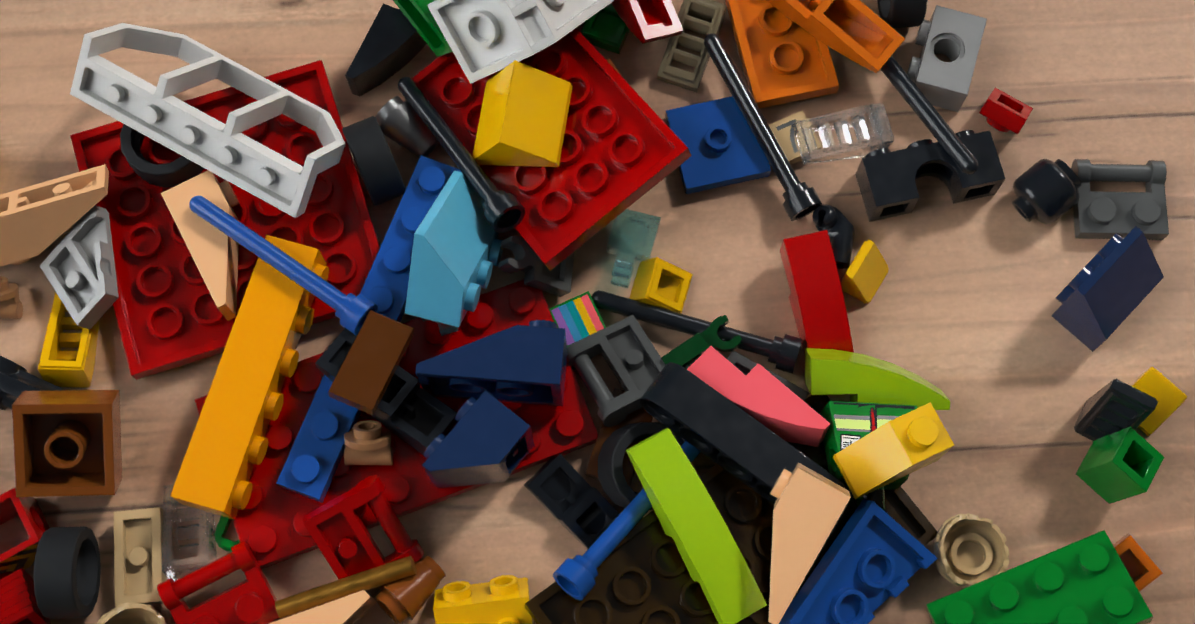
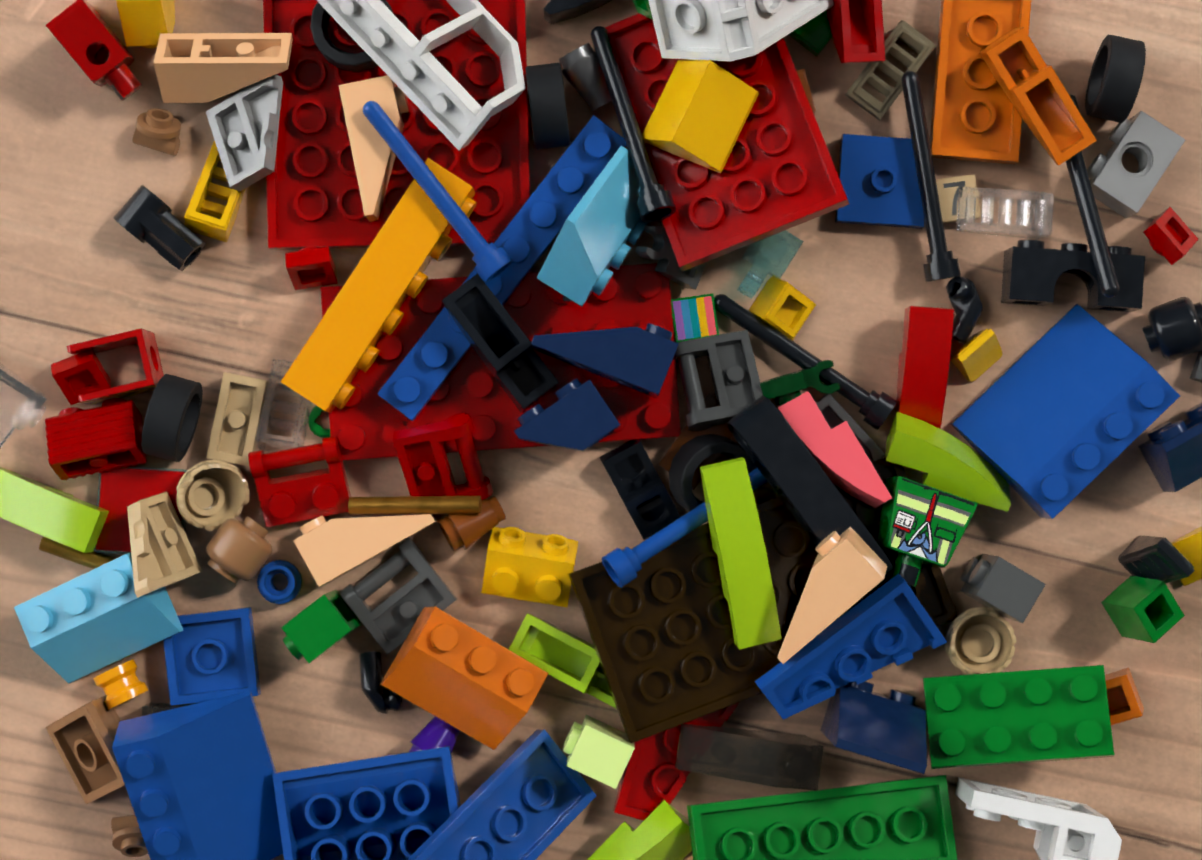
camera: 15 degrees right, 15 degrees up
(67, 443) = (198, 299): dark orange brick -> none
(179, 382) = (311, 267): none -> red plate
(368, 444) = (469, 382): medium nougat plate -> none
(371, 362) = (493, 316): reddish brown tile -> none
(894, 450) = (938, 543): yellow slope -> none
(969, 301) = (1065, 411): none -> blue slope
(971, 484) = (1001, 586): none -> dark grey brick

